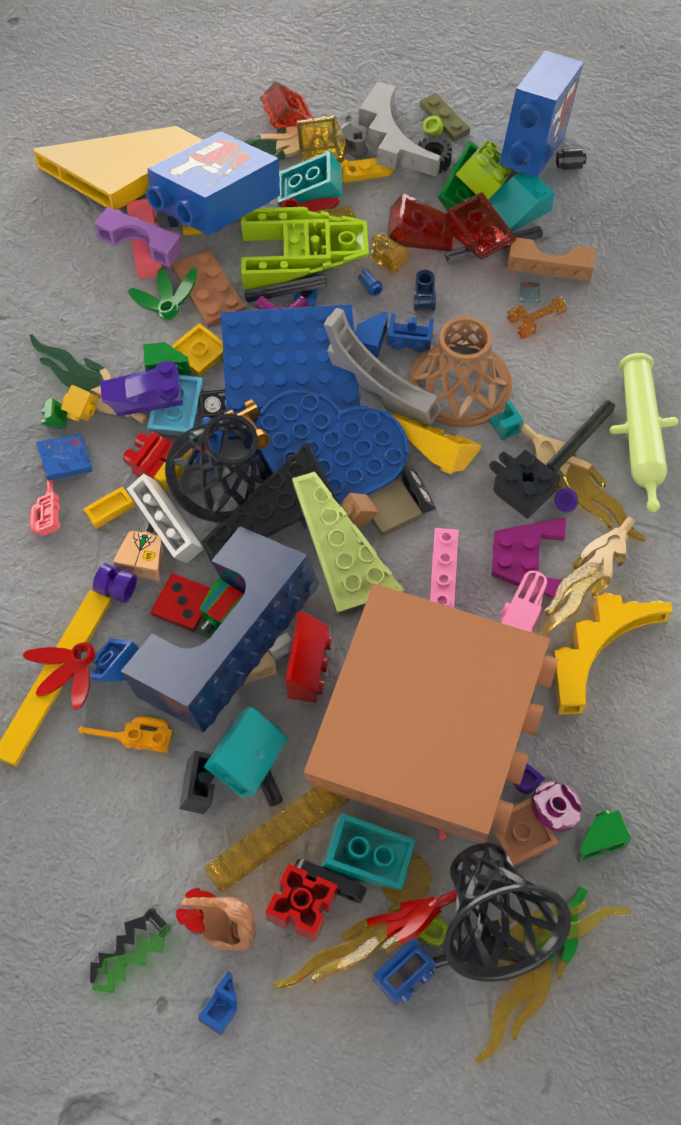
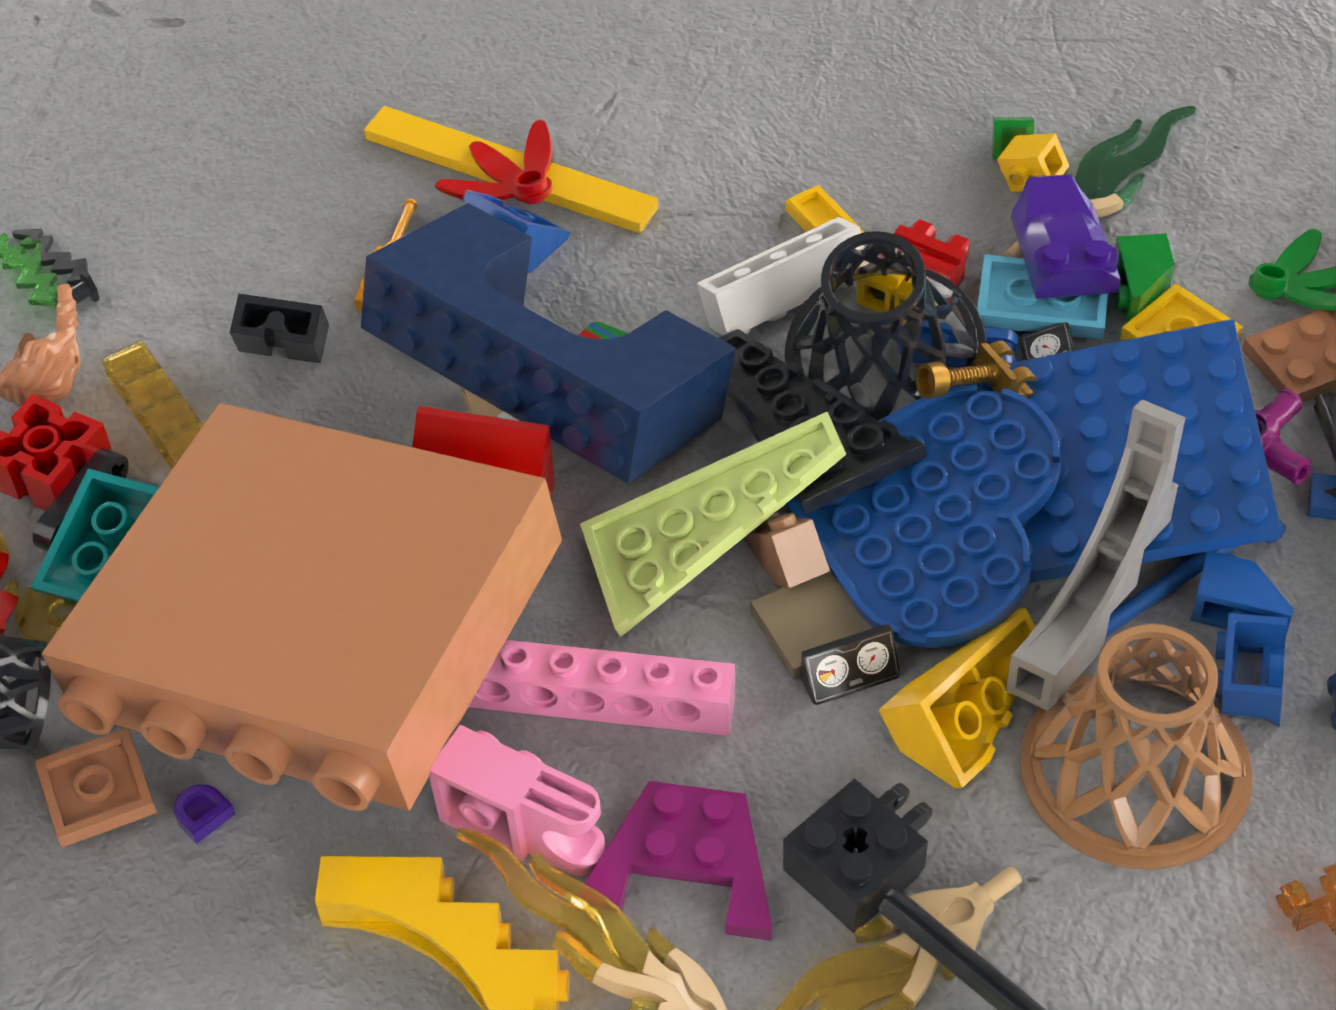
camera: 95 degrees right, 10 degrees down
(48, 508) = (822, 141): coral piece -> none
(64, 456) = (923, 155): blue tile -> none
(111, 581) = (662, 222): dark purple wheel -> none
(141, 554) = (712, 247): light nougat torso -> none
(180, 602) = (625, 305): red tile -> none
(193, 919) = (97, 347): red piece -> none
(247, 754) = (311, 376): teal piece -> none
(508, 422) = (1024, 840): teal panel -> none
(548, 814) = (133, 872): tile -> none
(566, 500) = (818, 938): dark purple tile -> none
(604, 835) = (53, 919): green slope -> none

